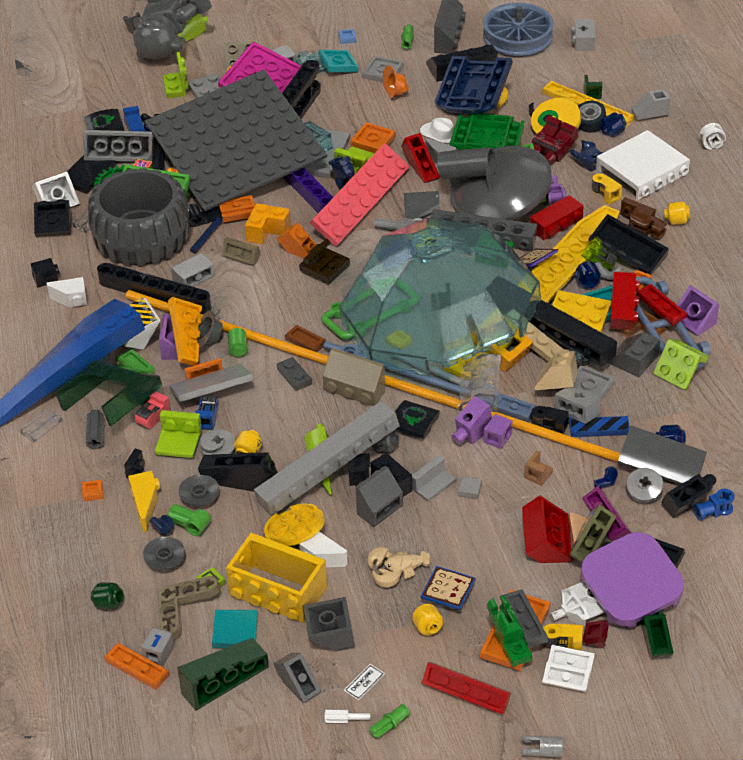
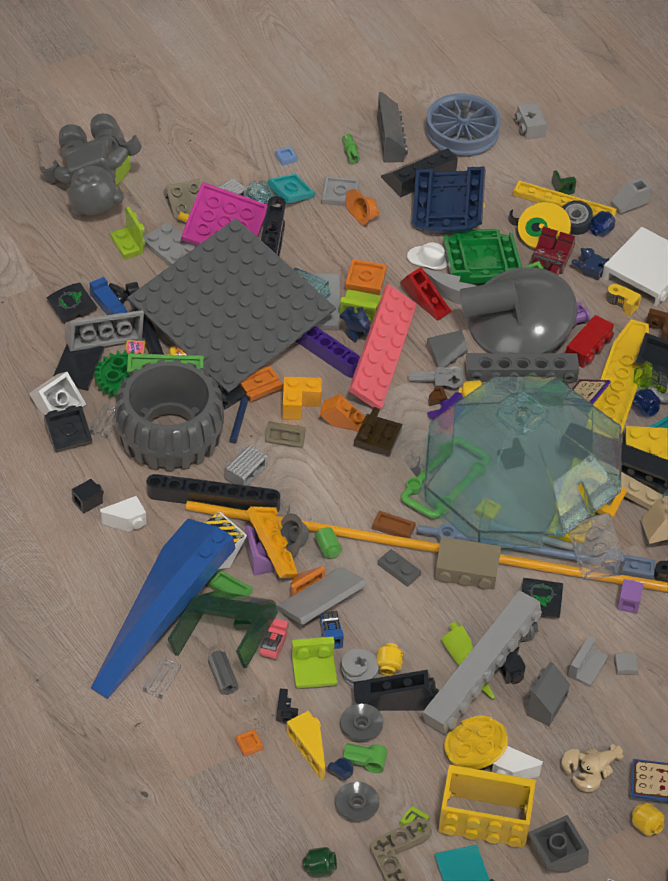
camera: 20 degrees left, 5 degrees up
(400, 474) = (540, 658): black brick -> none
(472, 421) = (605, 591): medium lavender torso -> none

